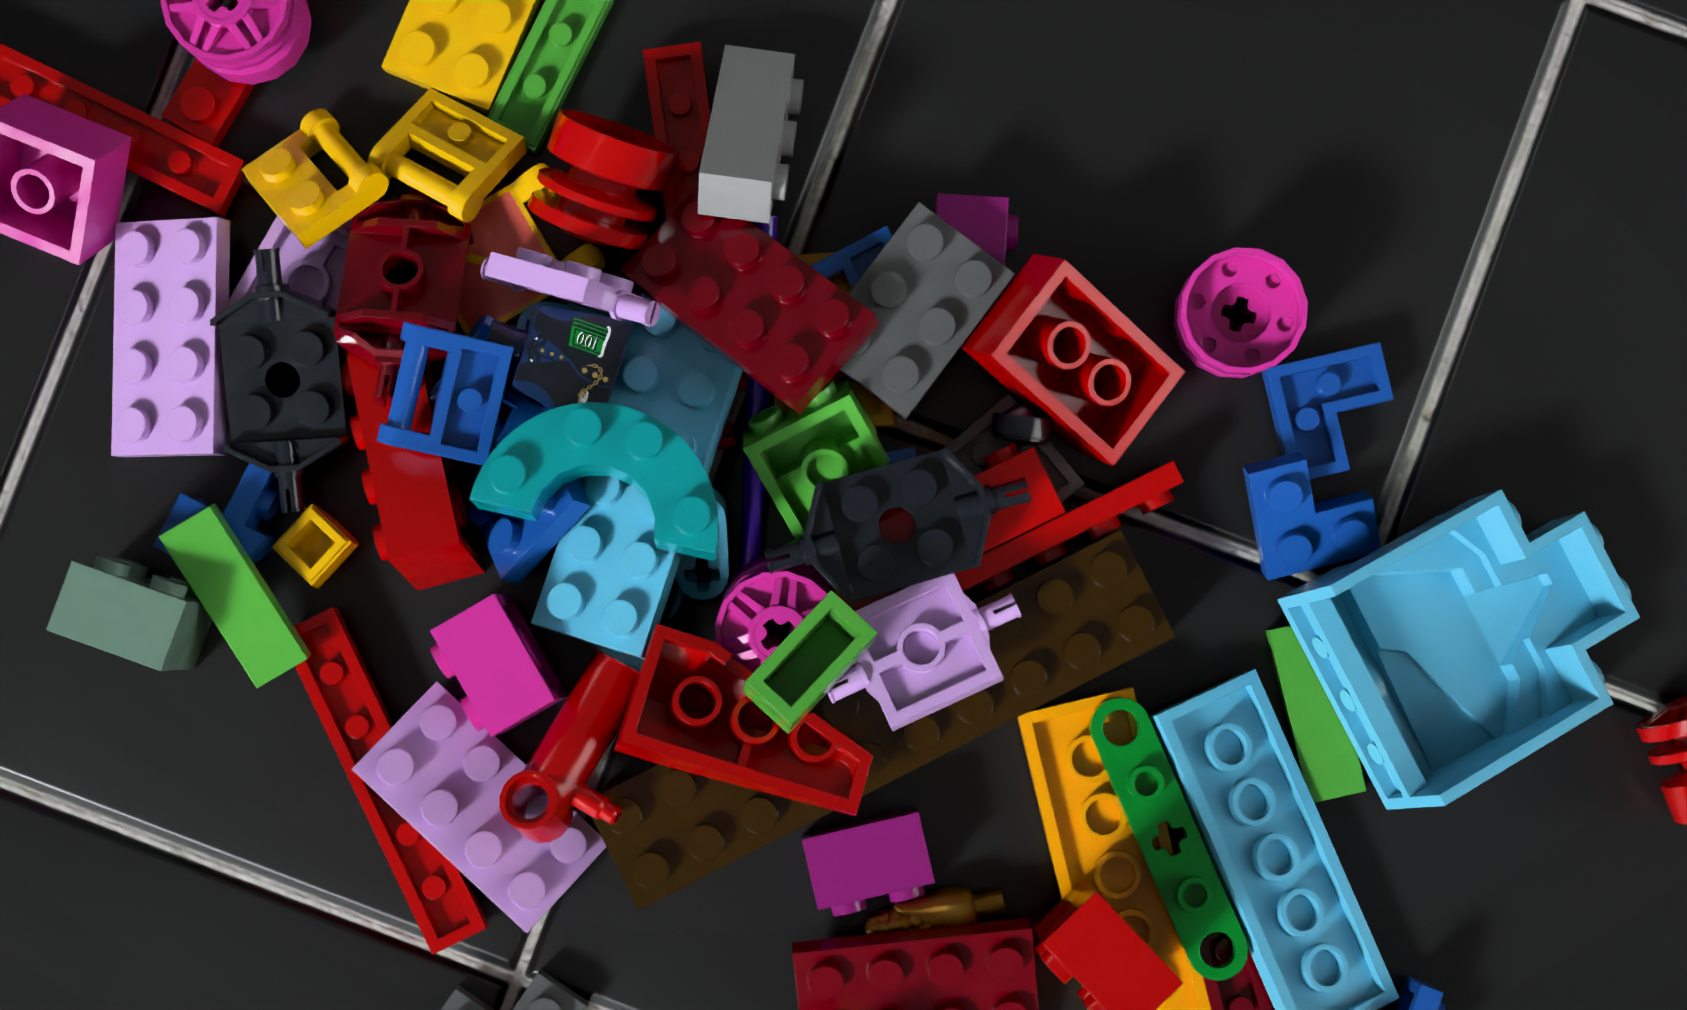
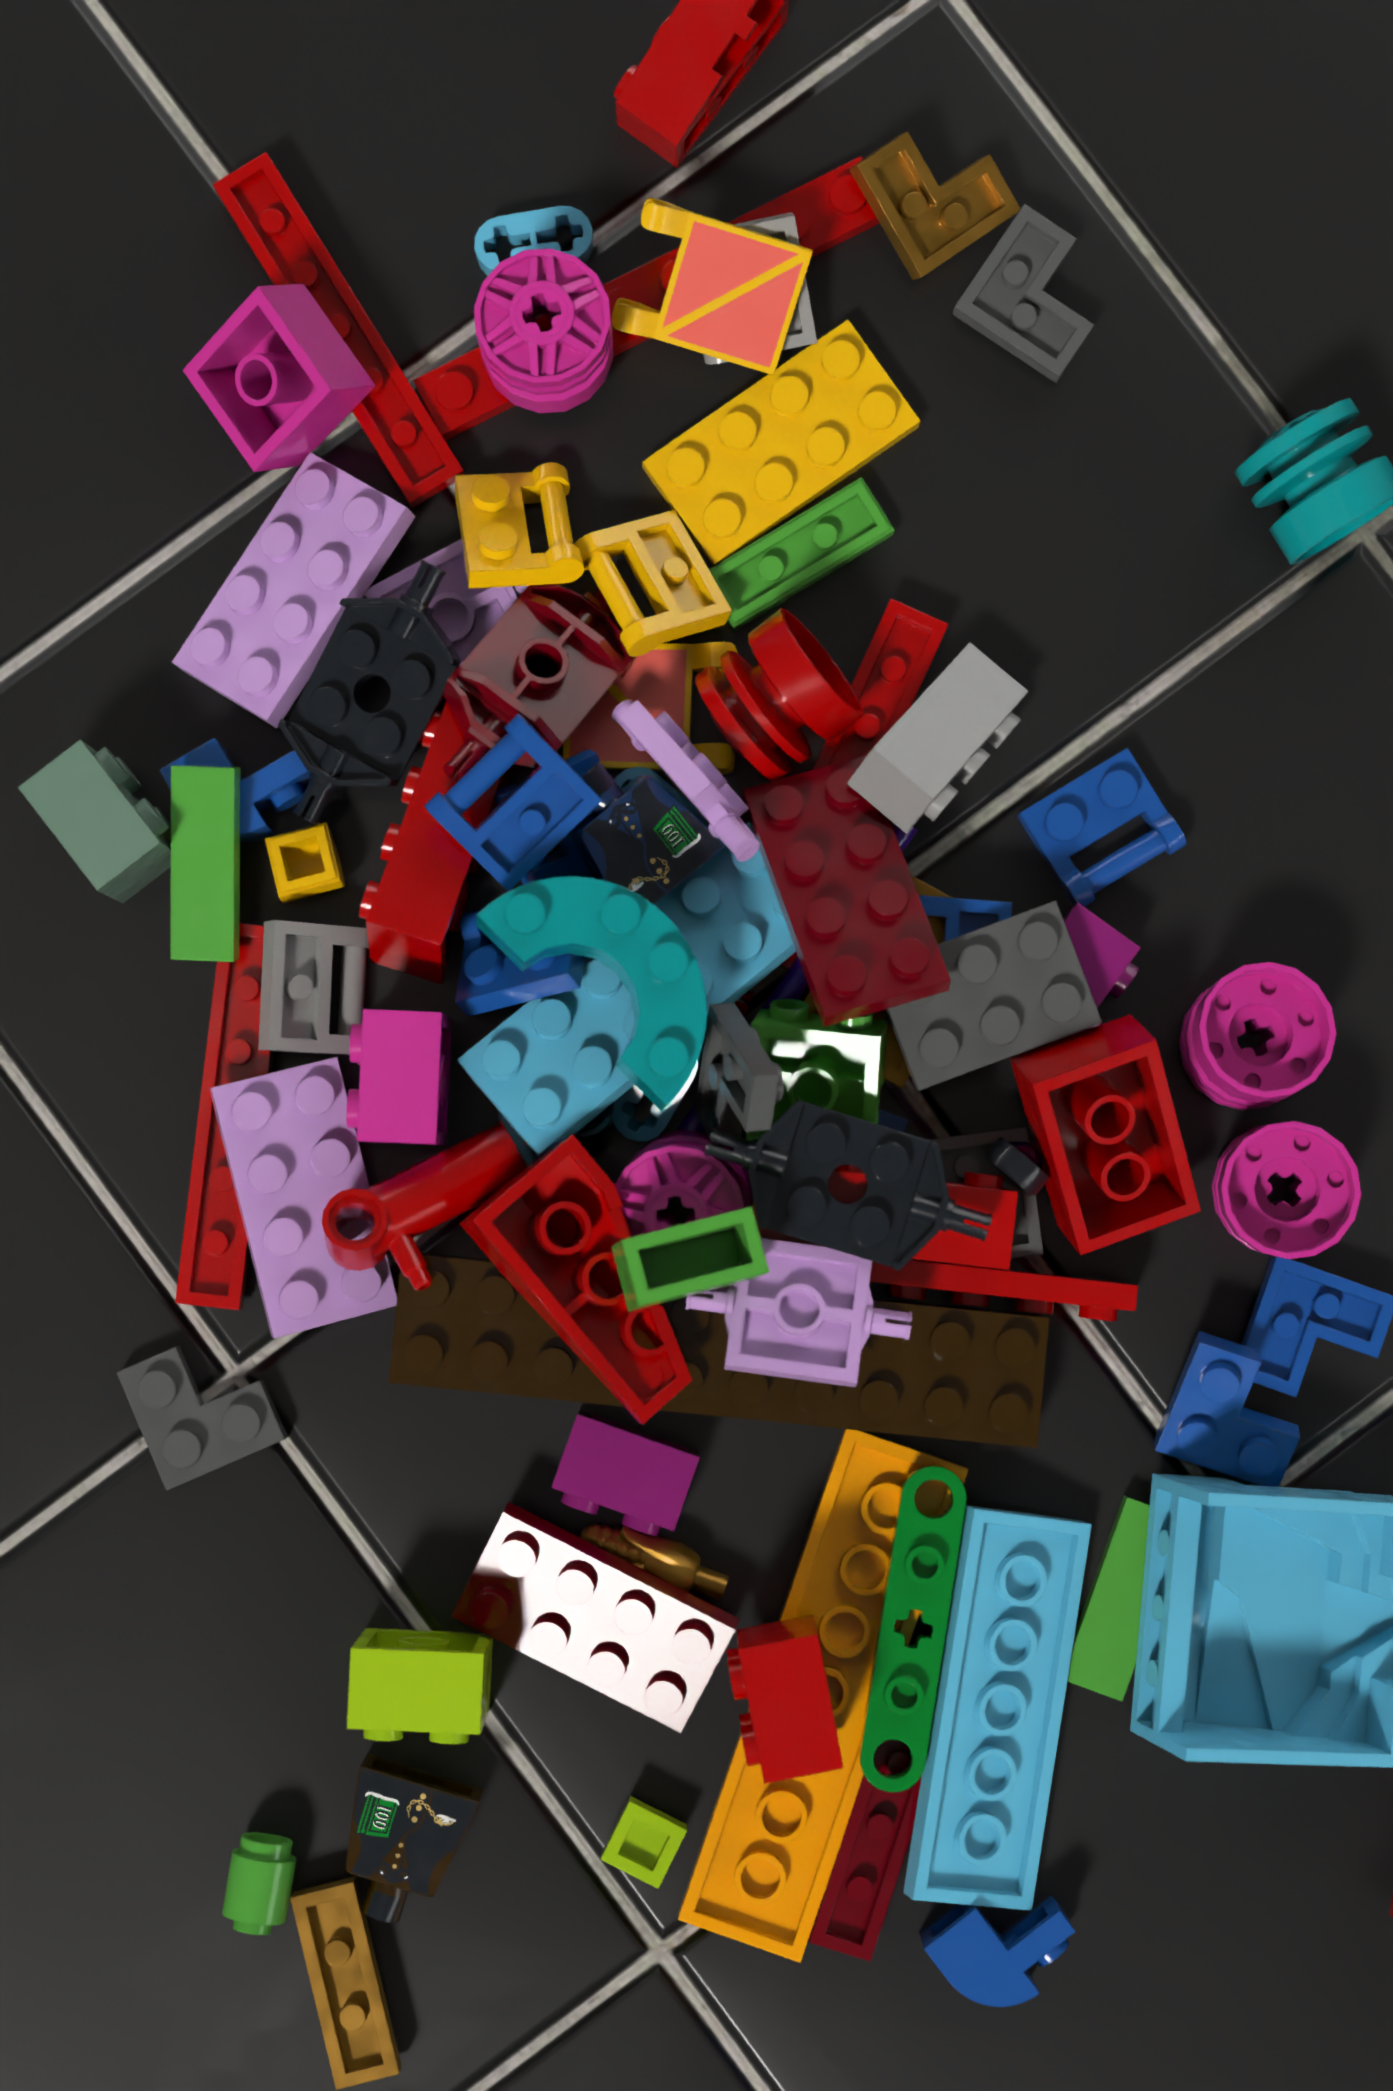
camera: 30 degrees right, 0 degrees up
(371, 644) = (299, 986): none -> light grey plate
(757, 497) = (735, 1076): none -> dark grey plate
(903, 116) = (1089, 811): none -> blue plate
(1134, 177) = (1285, 1013): none -> dark pink wheel

